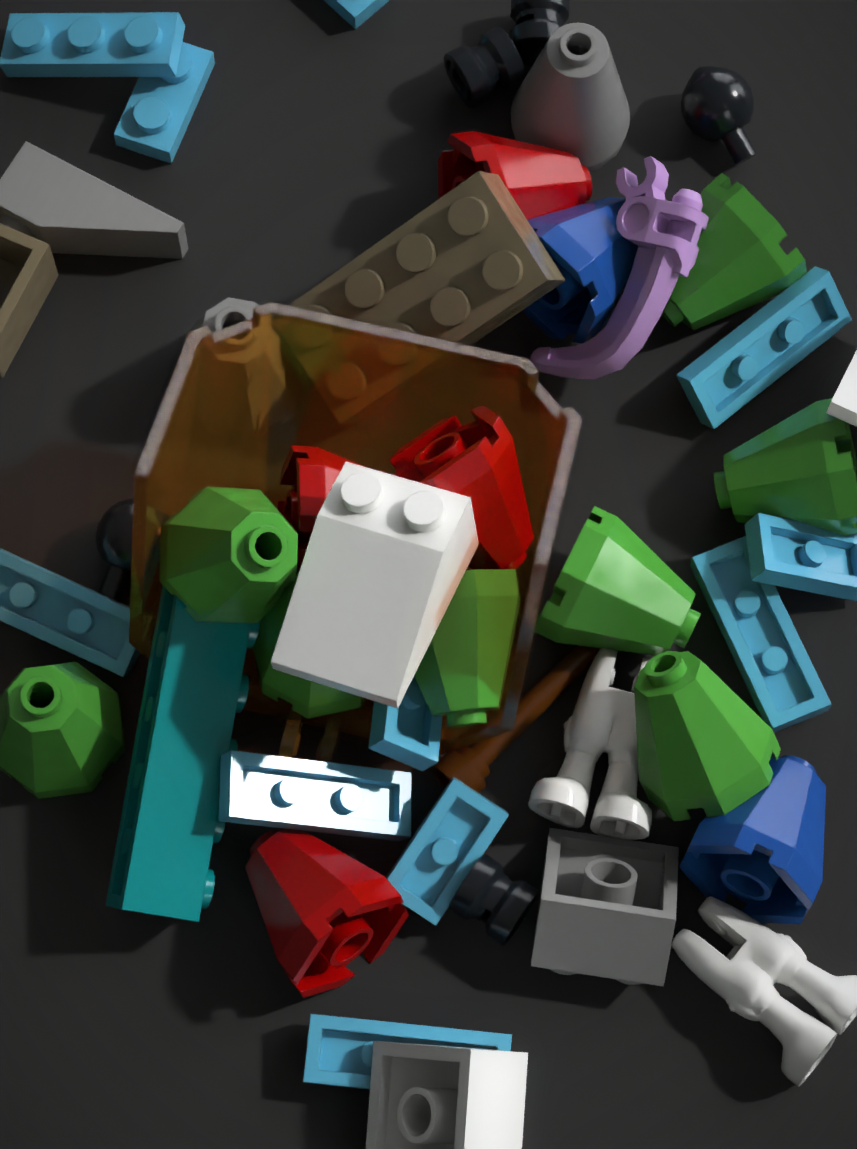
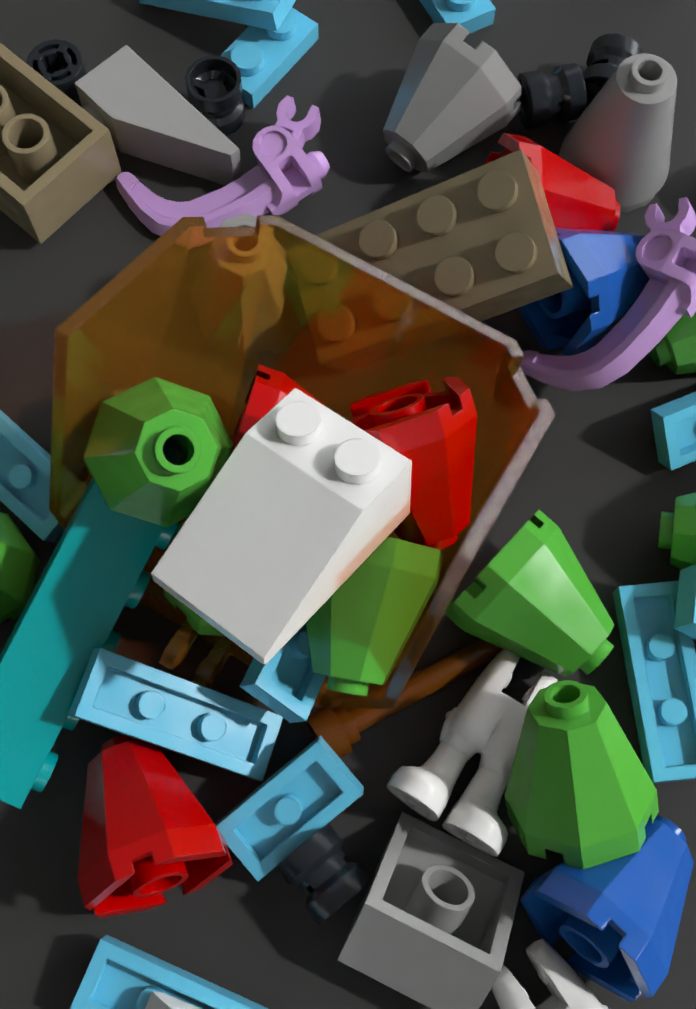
camera: 15 degrees right, 0 degrees up
(128, 154) = (216, 92): none -> black wheel
(224, 250) = (272, 187): none -> lavender piece
(380, 108) = (448, 99): none -> light grey cone

